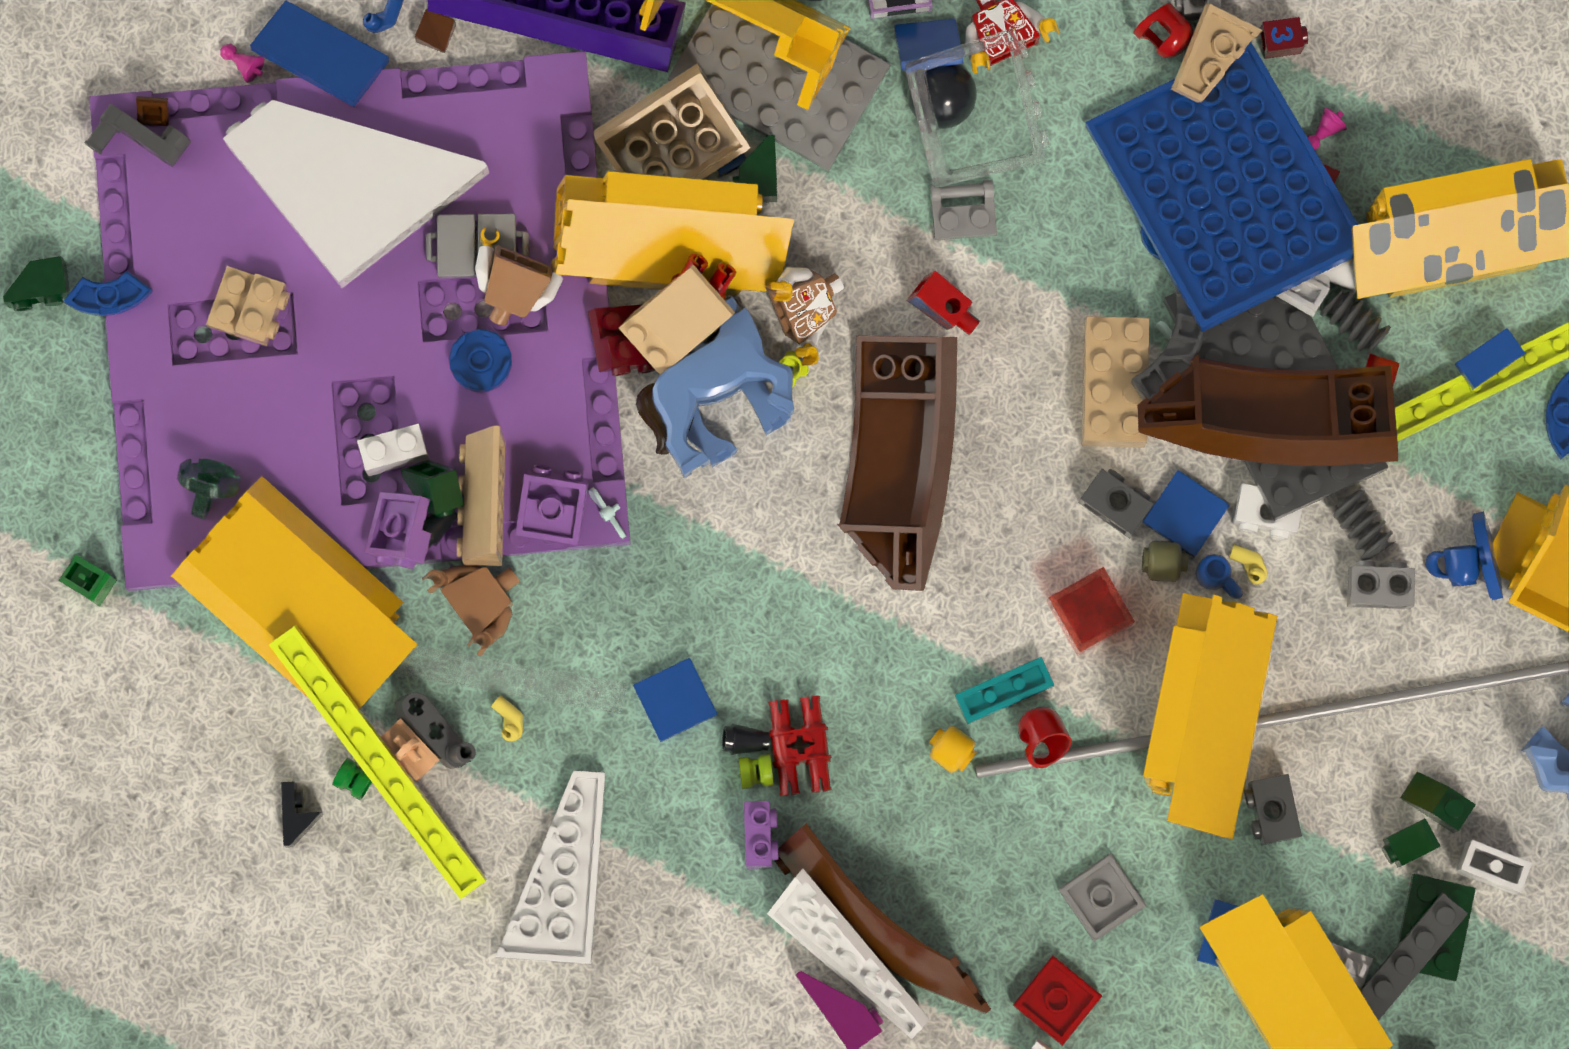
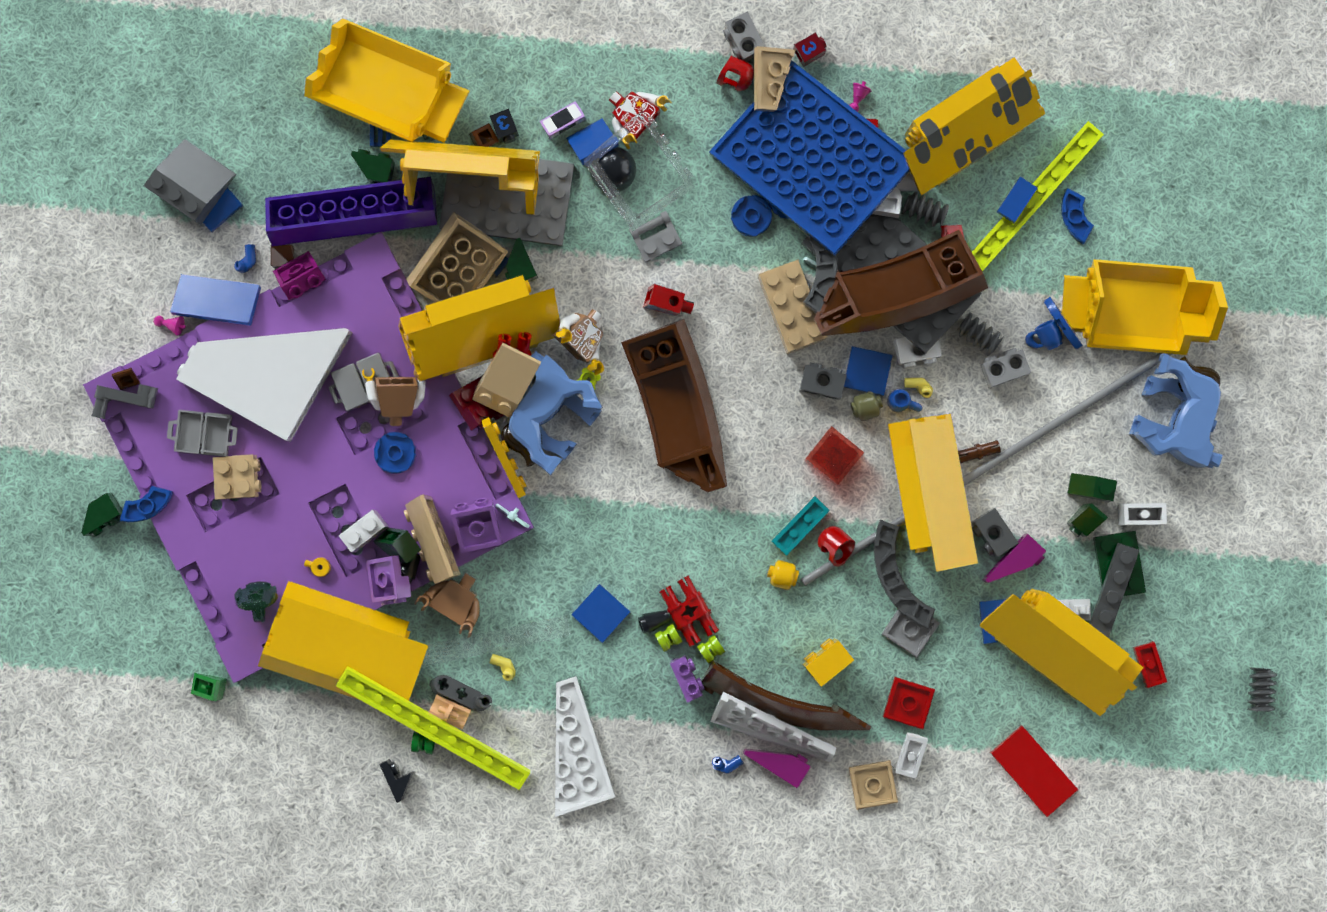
camera: 20 degrees left, 5 degrees up
(215, 220) = (195, 434): none -> light grey piece
(306, 470) = (315, 566): none -> yellow piece
(448, 66) = (299, 275): none -> magenta plate
(629, 414) = (501, 449): none -> yellow plate
(763, 984) = (726, 766): none -> blue arm
(816, 809) = (714, 645): none -> lime wheel
(965, 893) = (827, 661): none -> yellow brick
(1102, 816) = (891, 579): none -> dark grey tile
(1105, 242) = (751, 215): none -> blue tile
(1296, 859) = (1018, 558): none -> magenta slope
(1297, 688) = (979, 451): none -> reddish brown pin

